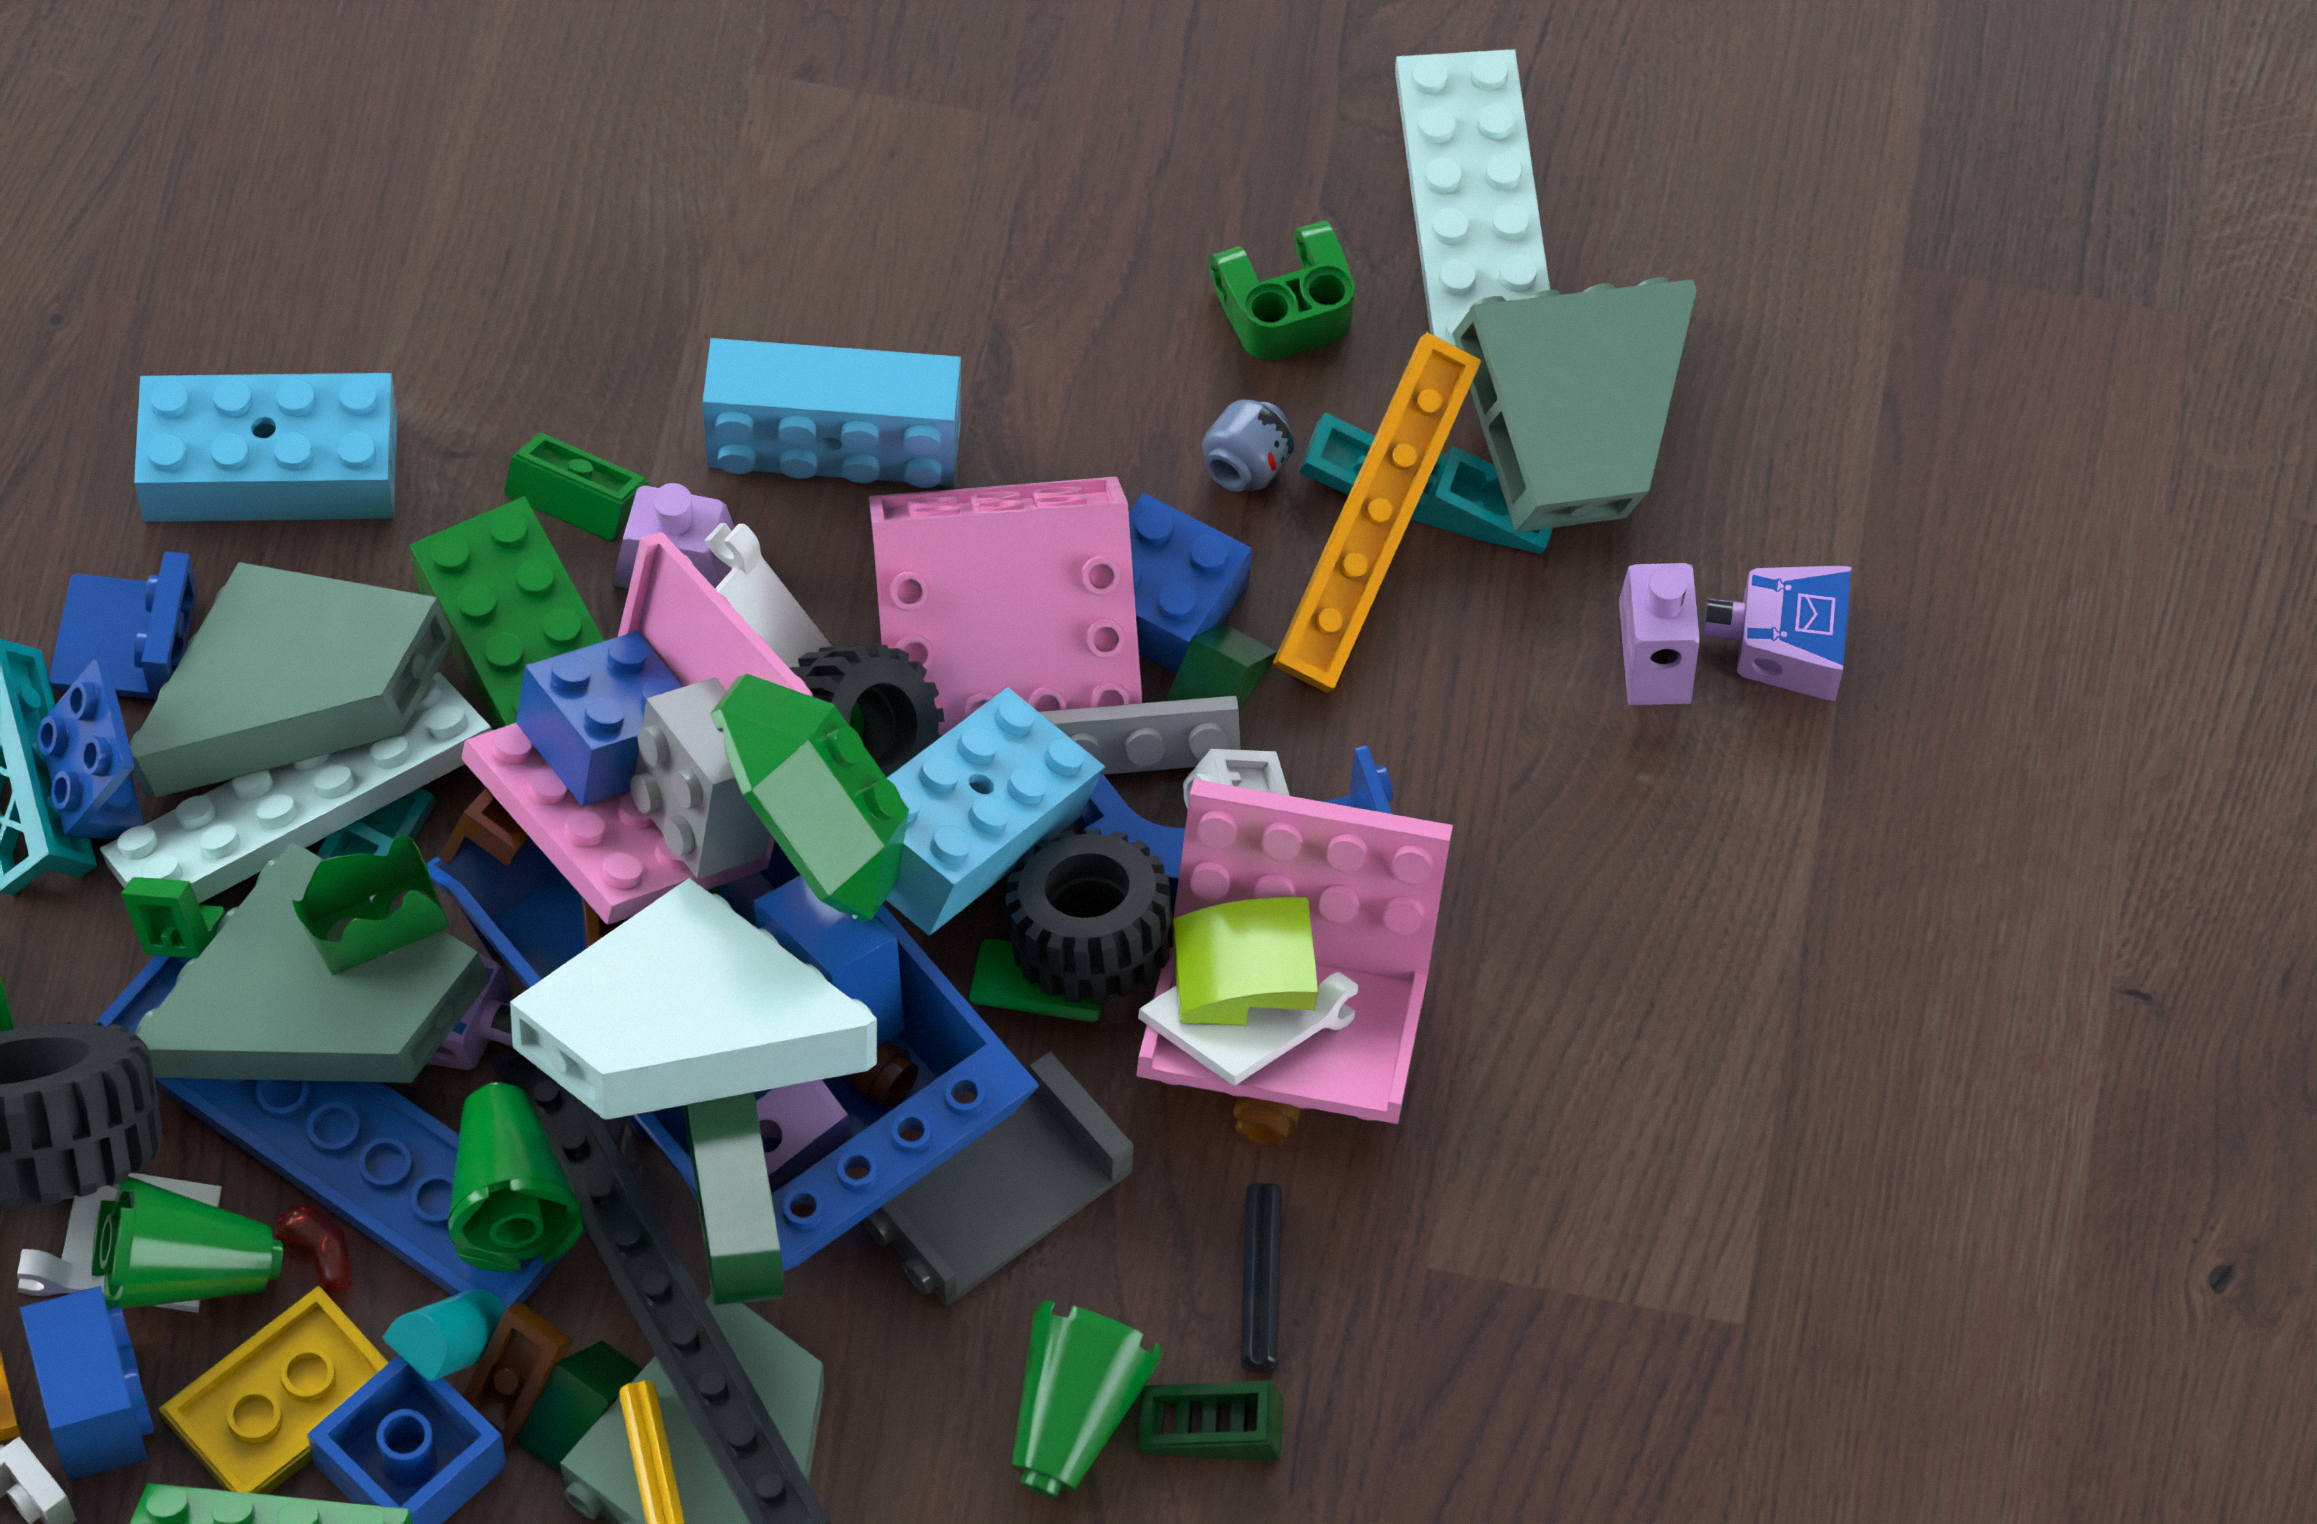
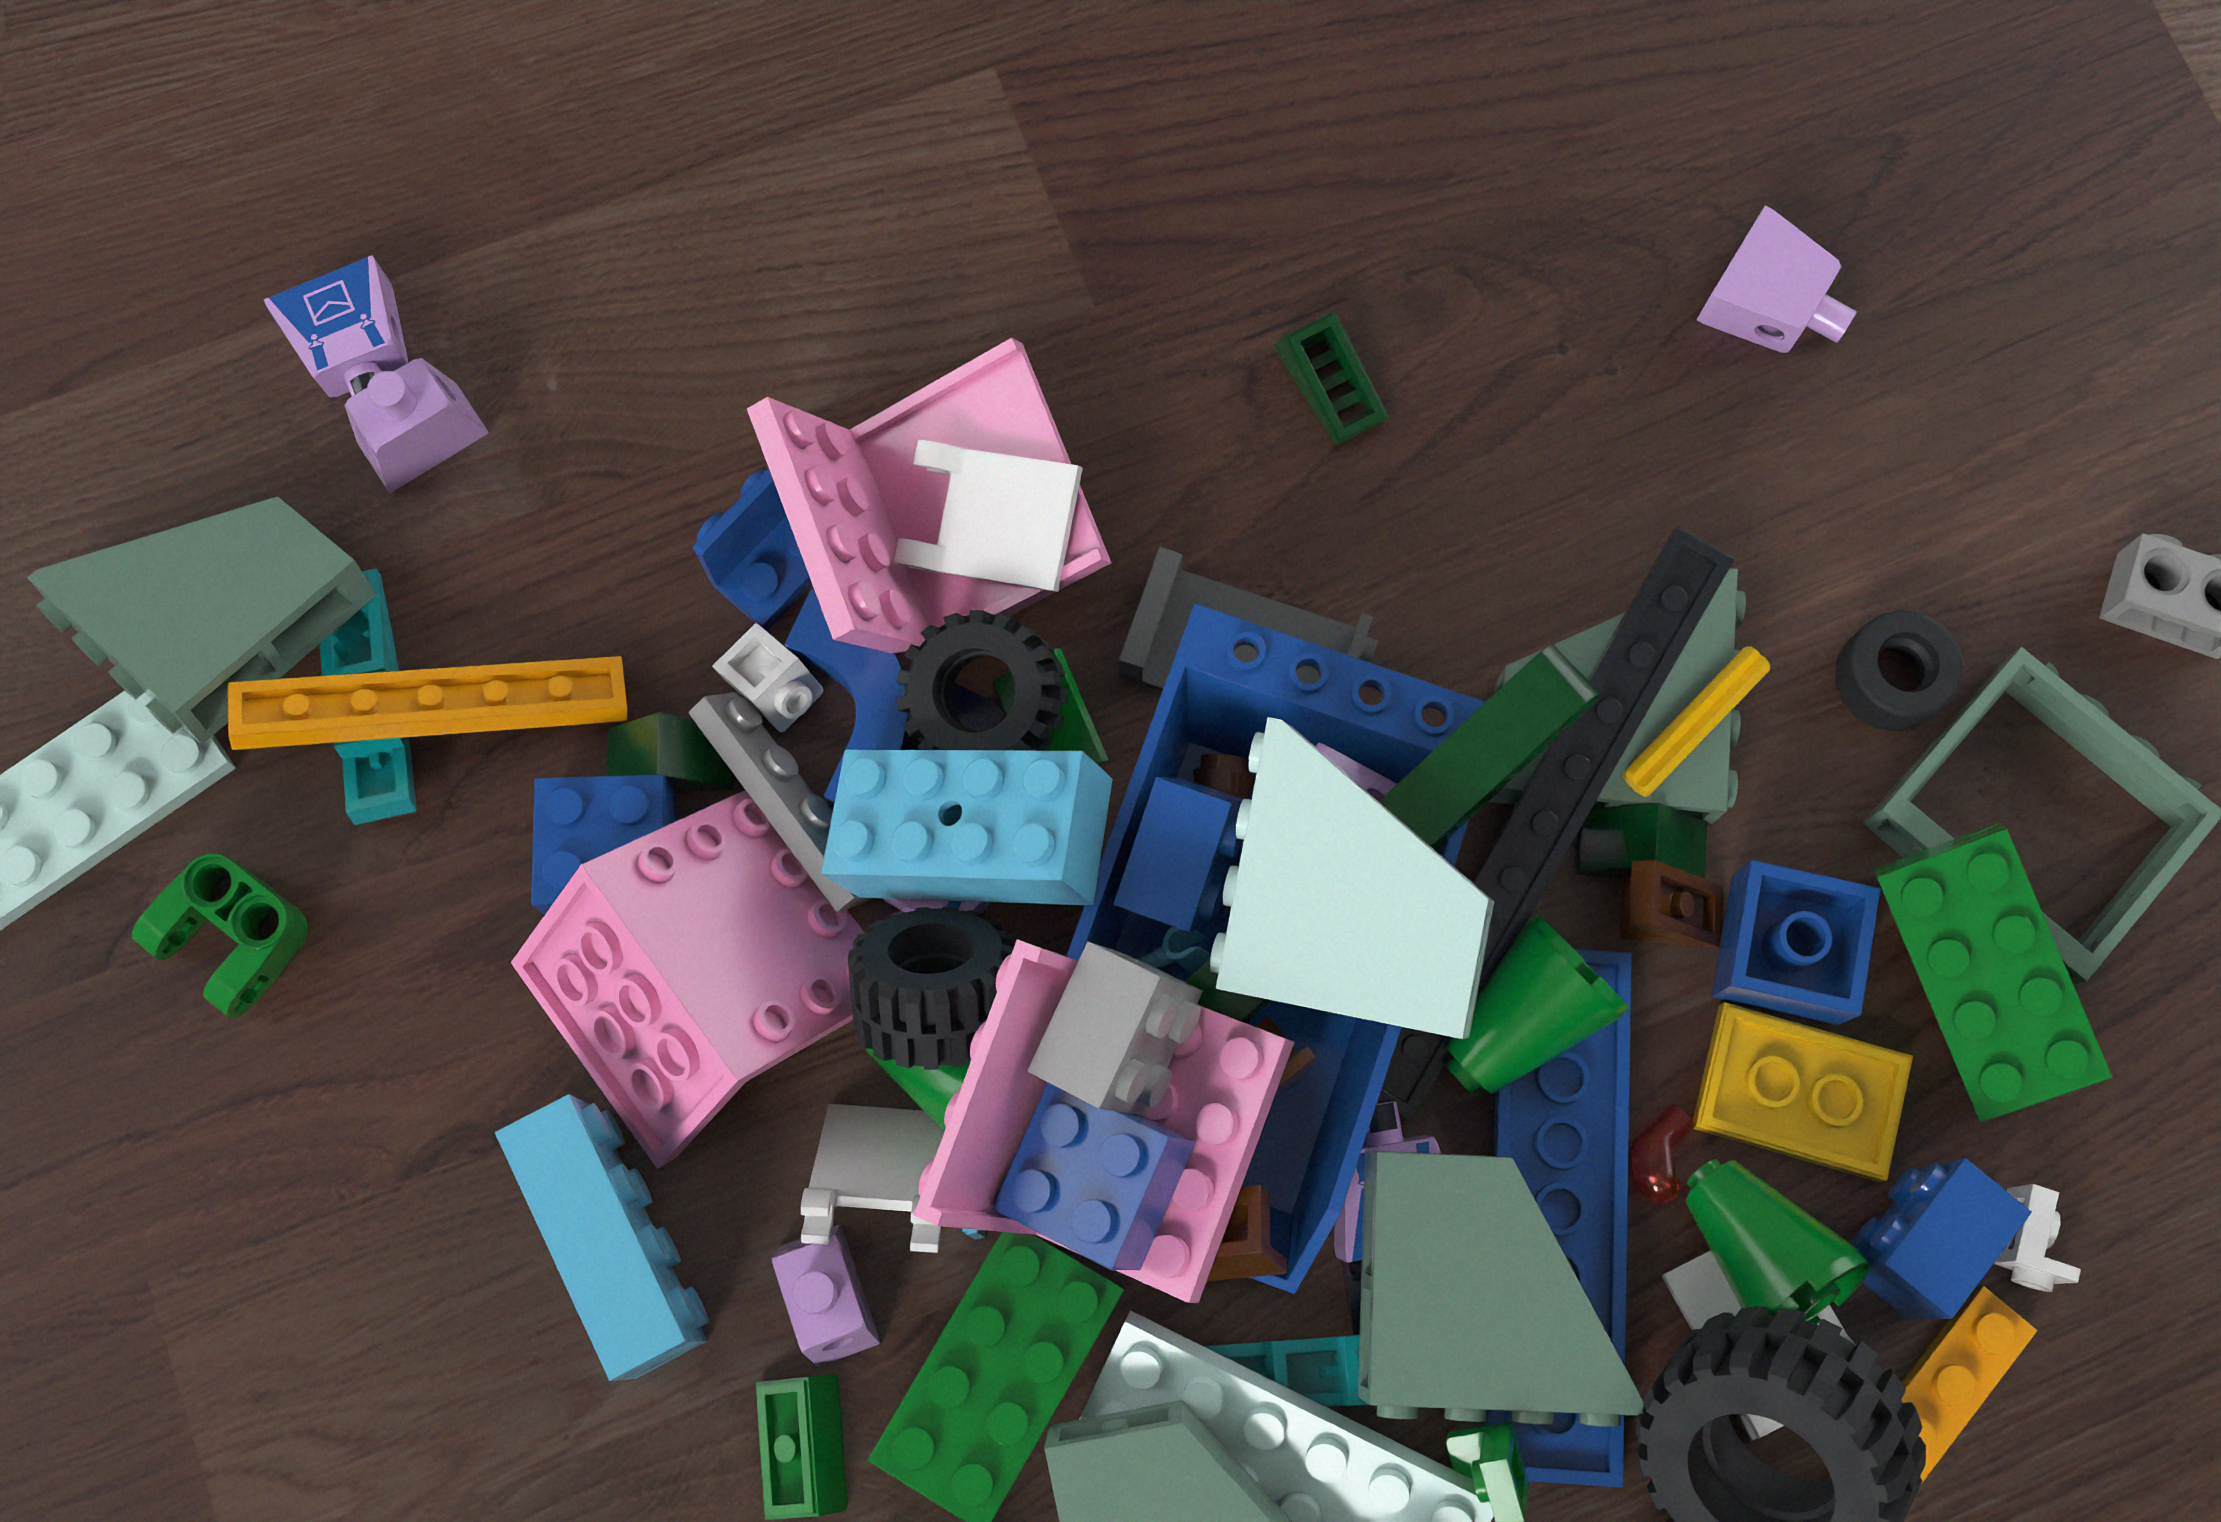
camera: 120 degrees left, 15 degrees up
(343, 889) = (1472, 1294): green piece -> none
(446, 1333) = (1692, 968): teal brick -> none
(815, 792) = (1107, 893): green wedge -> none
(1075, 1394) = (1388, 471): green cone -> none
(1244, 958) = (957, 531): lime slope -> none
(1247, 445) = (417, 862): sand blue head -> none
(1261, 1277) = (1189, 411): black axle -> none

